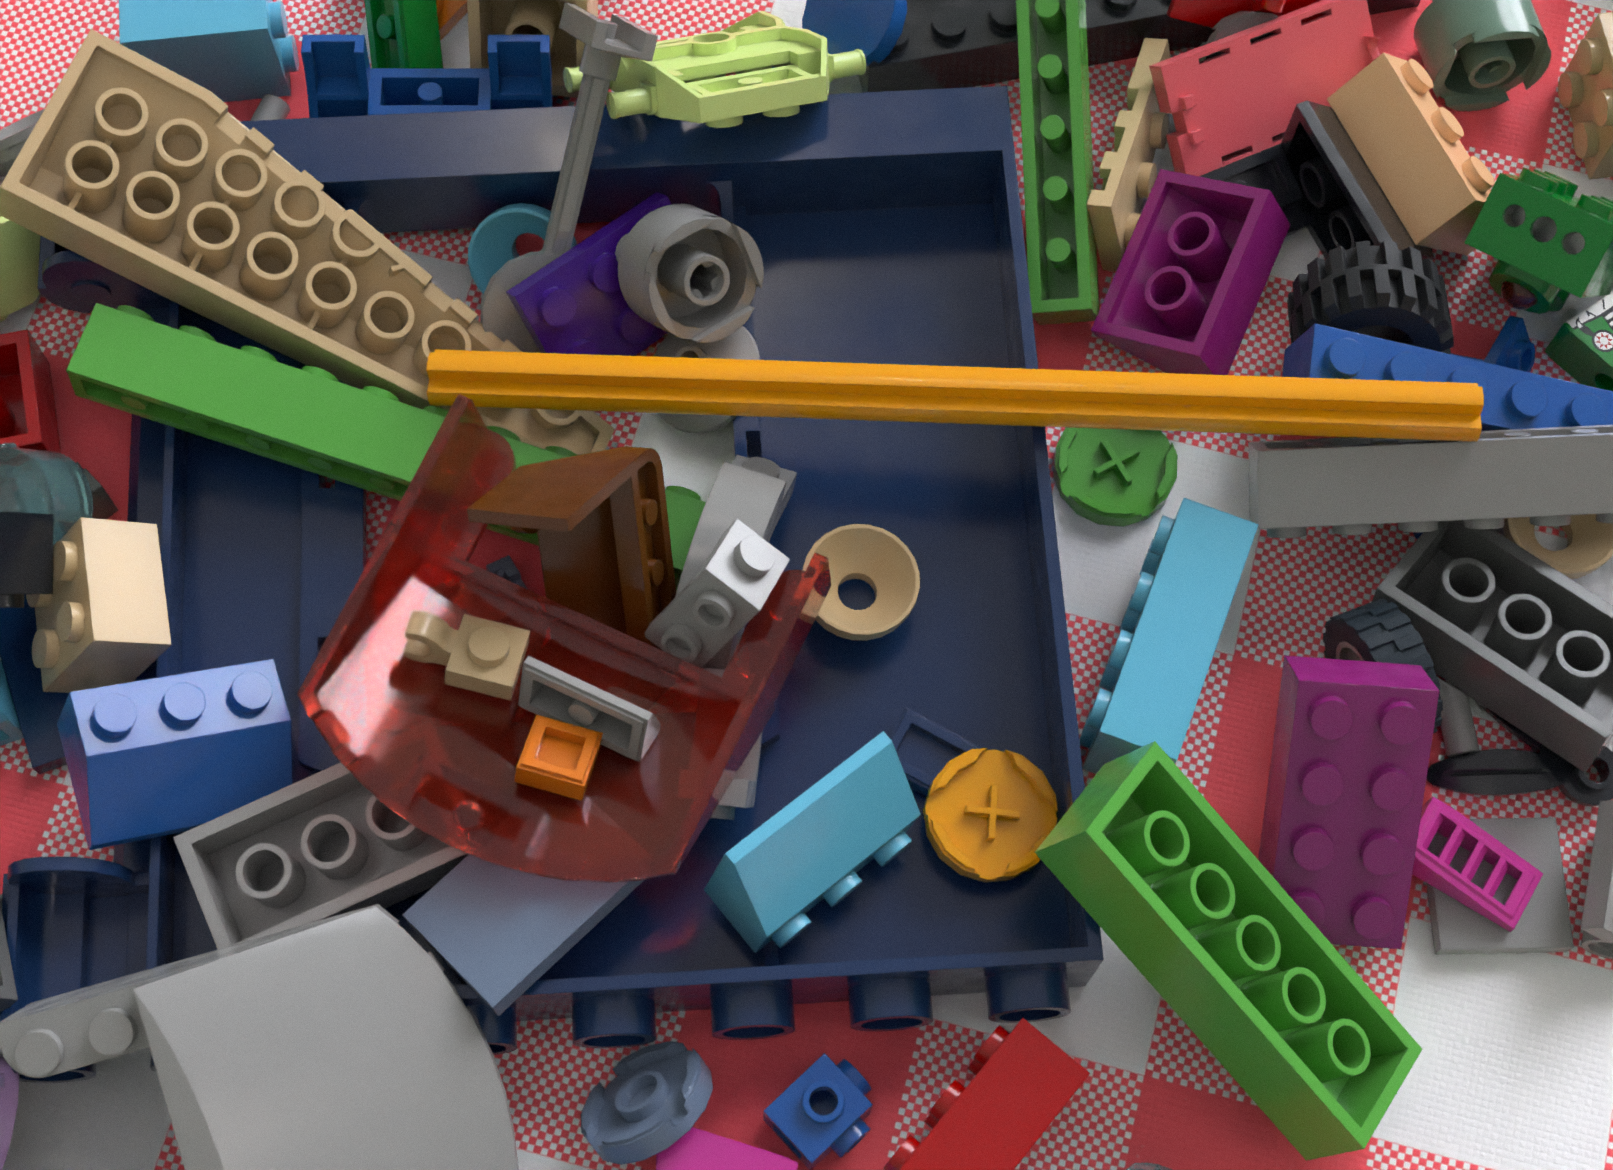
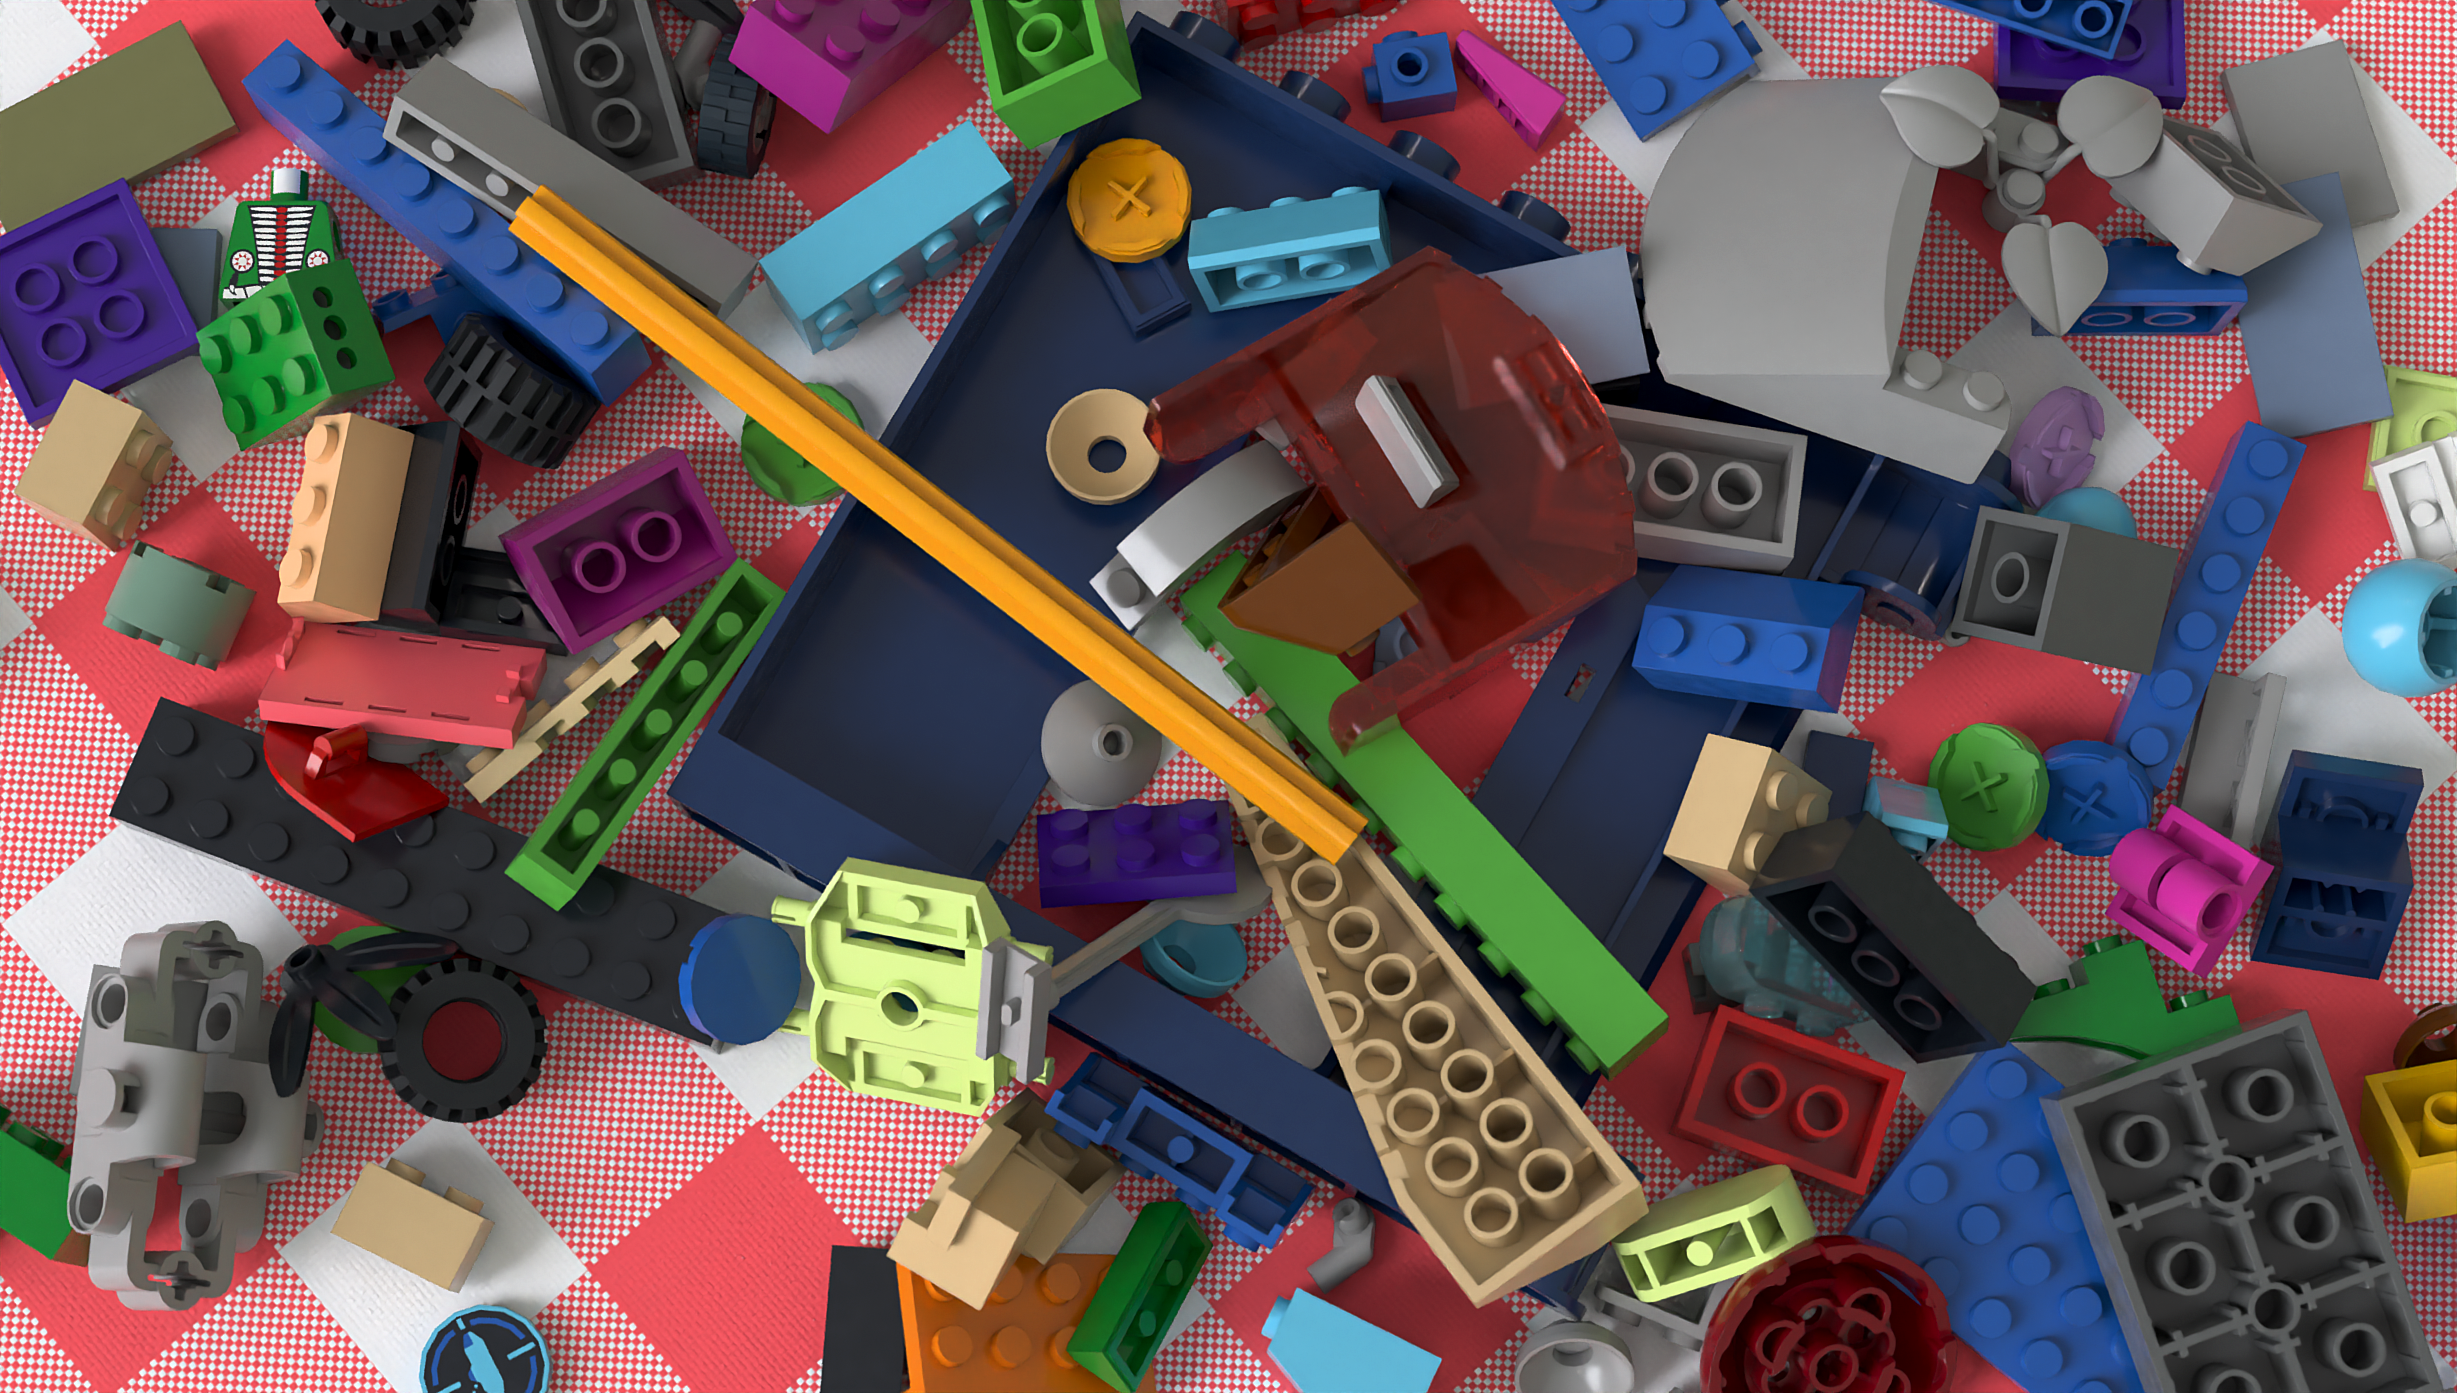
camera: 145 degrees left, 10 degrees up
(478, 656) = (1466, 543): tan plate -> none
(558, 757) = (1457, 407): orange tile -> none
(647, 1104) = (1541, 150): sand blue tile -> none
(689, 272) = (1068, 800): light grey brick -> none
(719, 597) = (1232, 455): light grey bracket -> none

